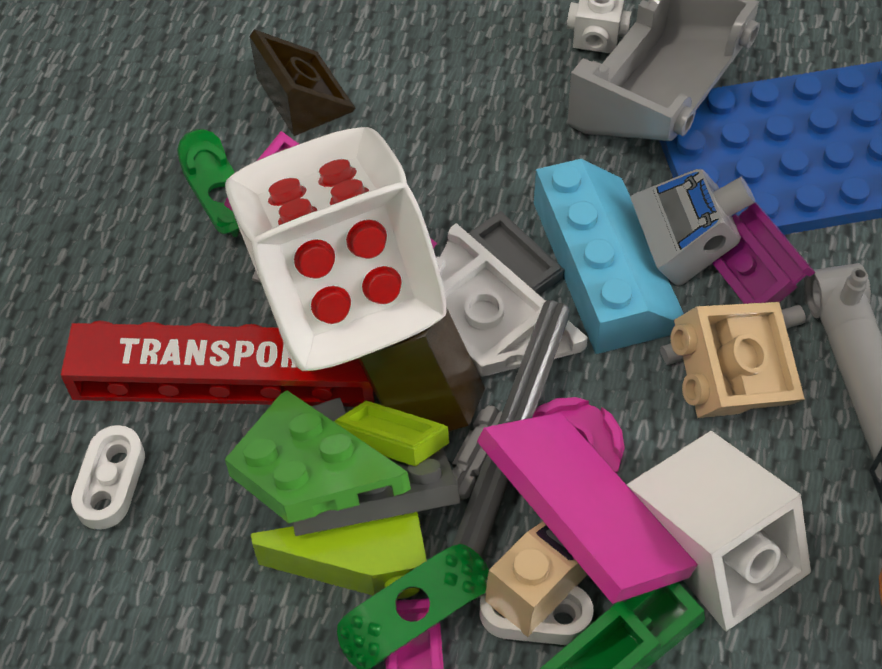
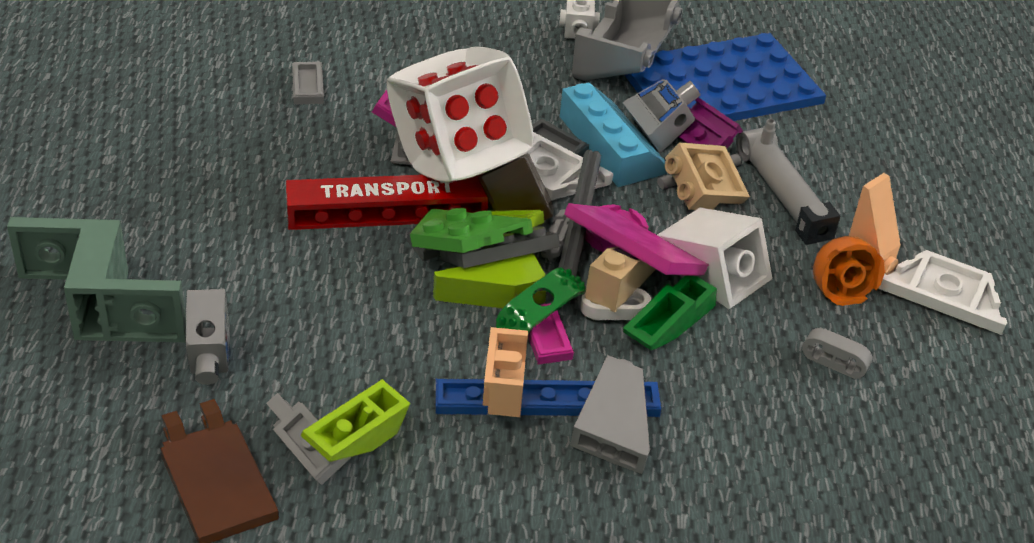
camera: 15 degrees left, 15 degrees down
(108, 480) = (328, 261): white plate -> none
(166, 115) = (307, 83): none -> light grey tile
(205, 169) = (344, 107): green piece -> none
(298, 83) = (382, 55): dark brown slope -> none

